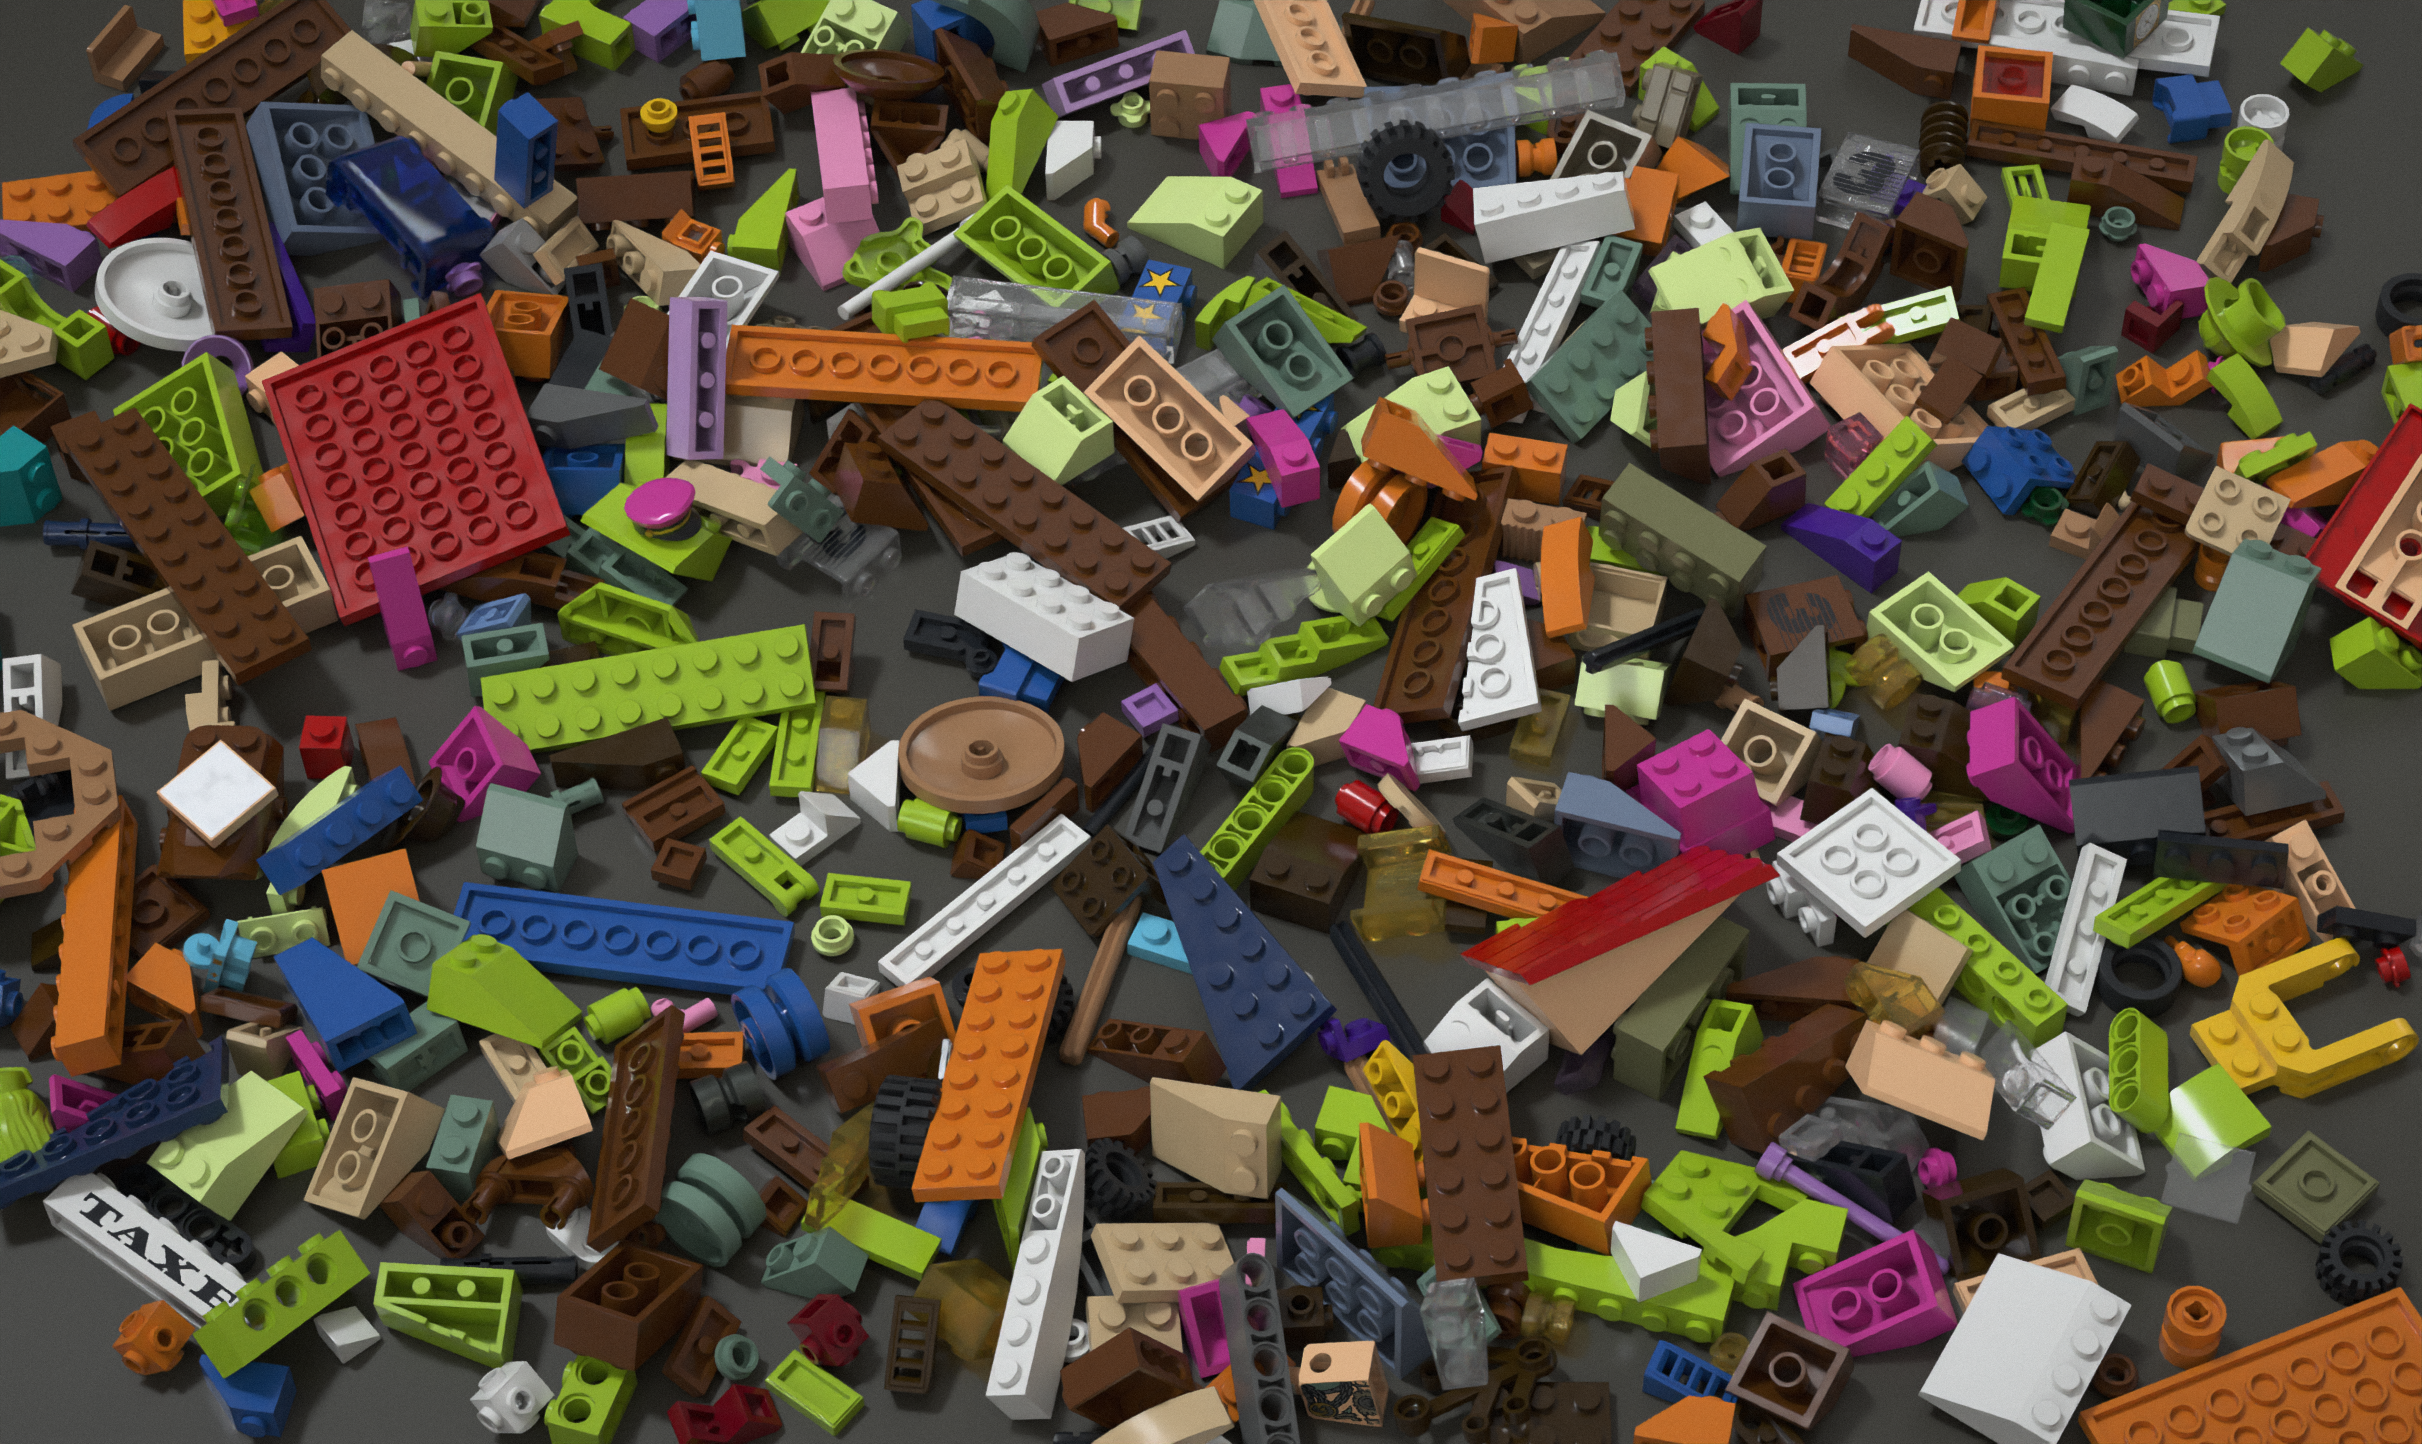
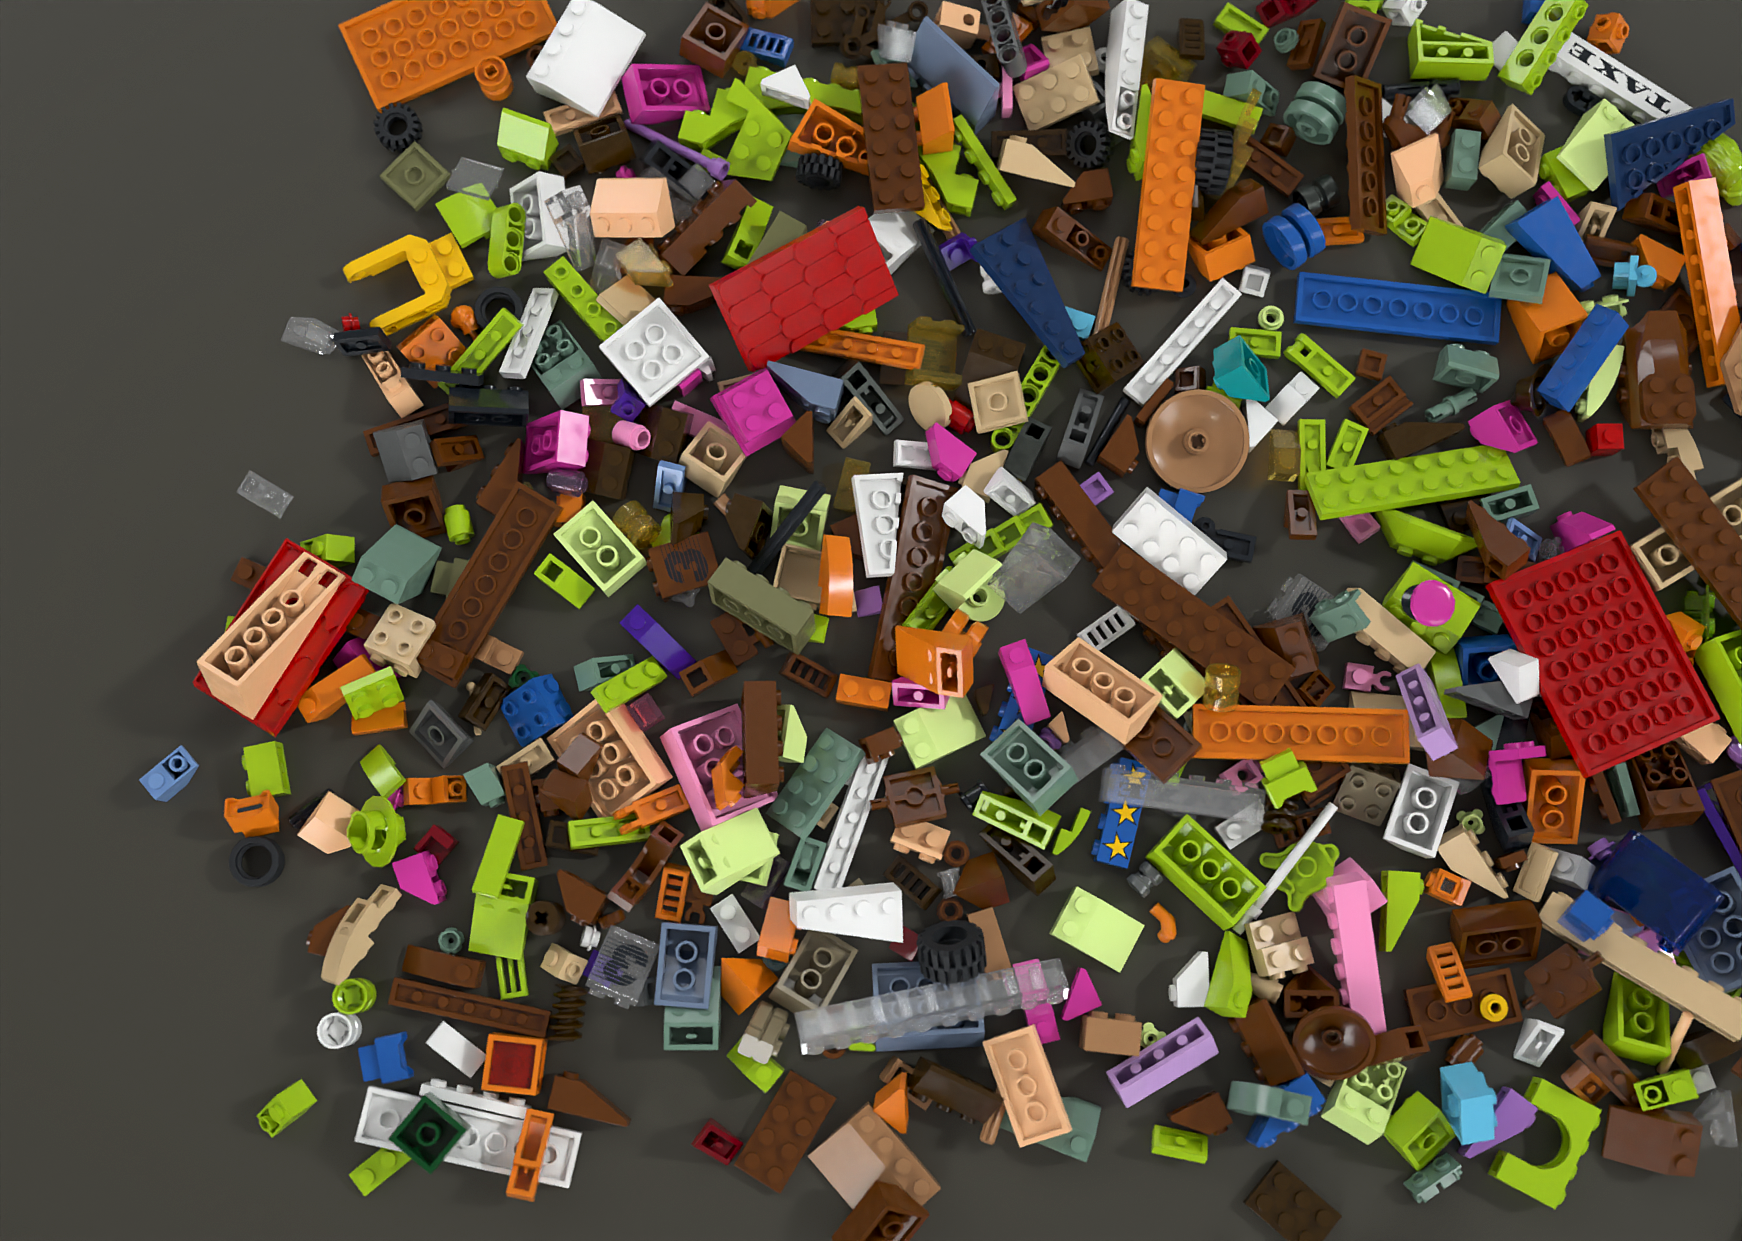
camera: 175 degrees right, 30 degrees up
(217, 794) = (1665, 361): flat silver tile -> none
(508, 1202) = (1429, 108): none -> clear slope
(541, 566) = (1496, 544): none -> reddish brown slope
(553, 424) = (1518, 673): none -> white slope
(579, 327) = (1508, 770): none -> dark pink bracket
(602, 96) = (1536, 1041): none -> white slope
(617, 1015) = (1389, 254): lime brick -> none
(694, 1015) = (1351, 258): bright pink arm -> none
(898, 837) = (1240, 371): none -> teal slope
(993, 407) = (1221, 687): none -> clear yellow wheel
(1301, 802) = (998, 402): none -> tan tile
(1357, 660) = (966, 514): none -> white slope
(1524, 527) = (850, 637): medium nougat brick -> none
(1537, 157) = (851, 989): orange wheel -> none
(1985, 225) = (535, 918): none -> dark brown piece

